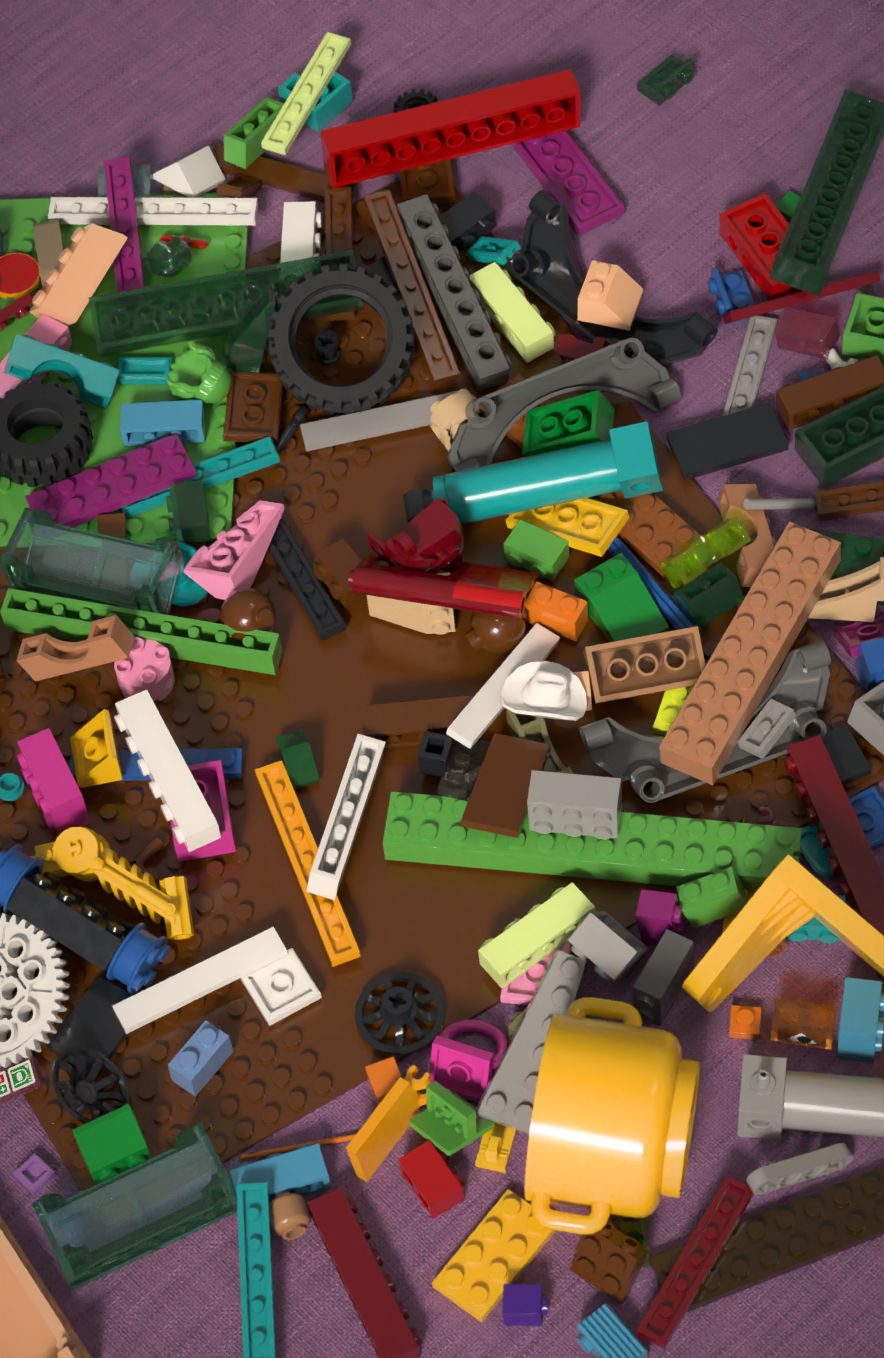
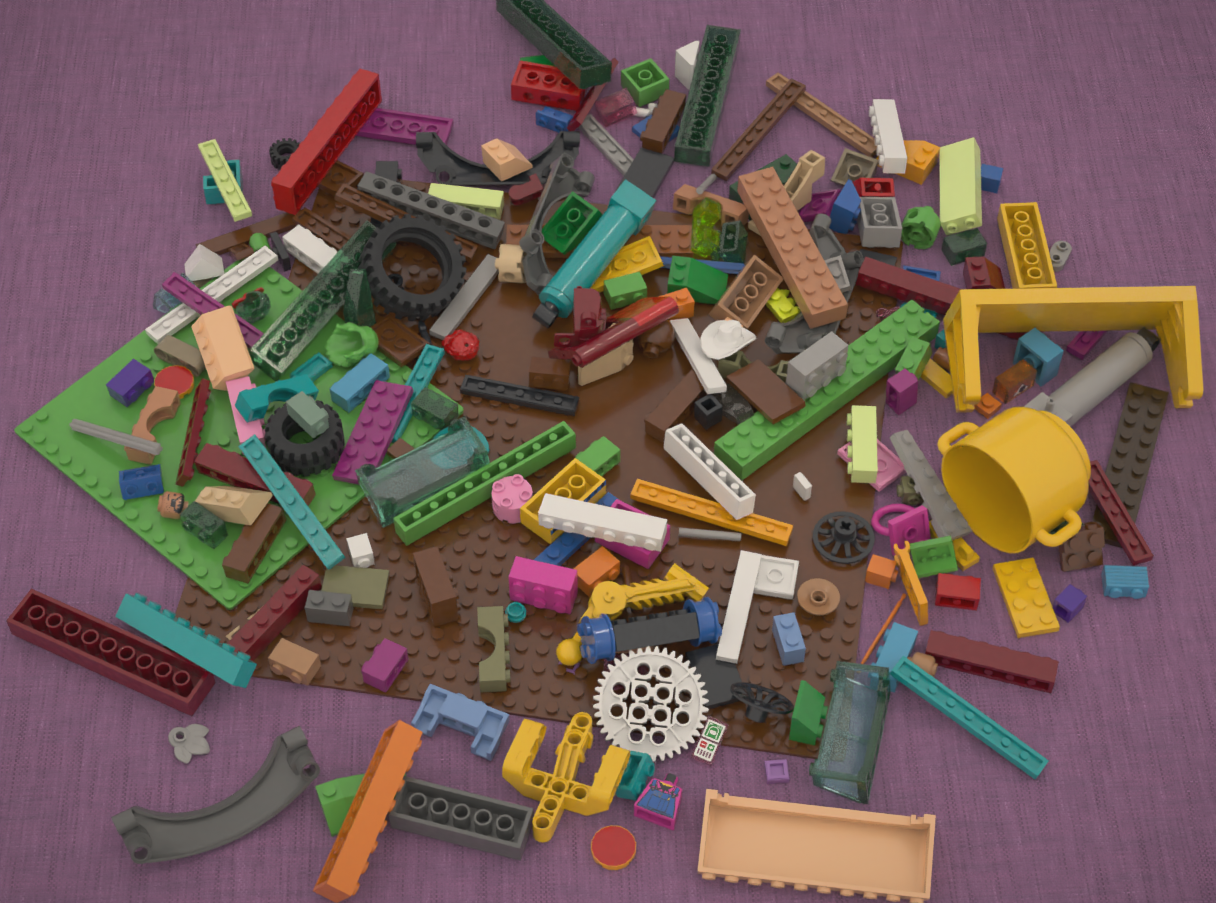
camera: 55 degrees left, 5 degrees down
(45, 411) = (308, 414): none -> sand green brick
(49, 657) = (486, 497): nougat arch -> none
(96, 752) = (547, 546): yellow slope -> none
(125, 816) = (597, 568): none -> orange brick
(197, 713) = (572, 482): none -> yellow brick
(238, 554) = (483, 408): bright pink wedge -> none
(244, 139) = (218, 219): bright green brick -> none
(248, 611) = (531, 425): reddish brown brick -> none
(268, 195) = (258, 241): none -> bright green brick
(273, 705) = (600, 456): none -> bright green brick
(274, 220) = (280, 251): none -> black plate
(279, 883) = (710, 534): none -> light grey bar
(281, 1035) = (821, 590): none -> medium nougat dish
(298, 759) = (645, 470): dark green slope -> none
(316, 462) = (455, 345): none -> red hair
(425, 921) = (802, 486): none -> white tile
(493, 250) = (422, 178): teal tile -> none
(607, 945) = (905, 414): light grey brick -> none
(663, 977) = (936, 410): dark grey brick -> none
(666, 79) = (394, 53): clear green bracket -> none
(799, 1169) = (1100, 436): light grey beam -> none

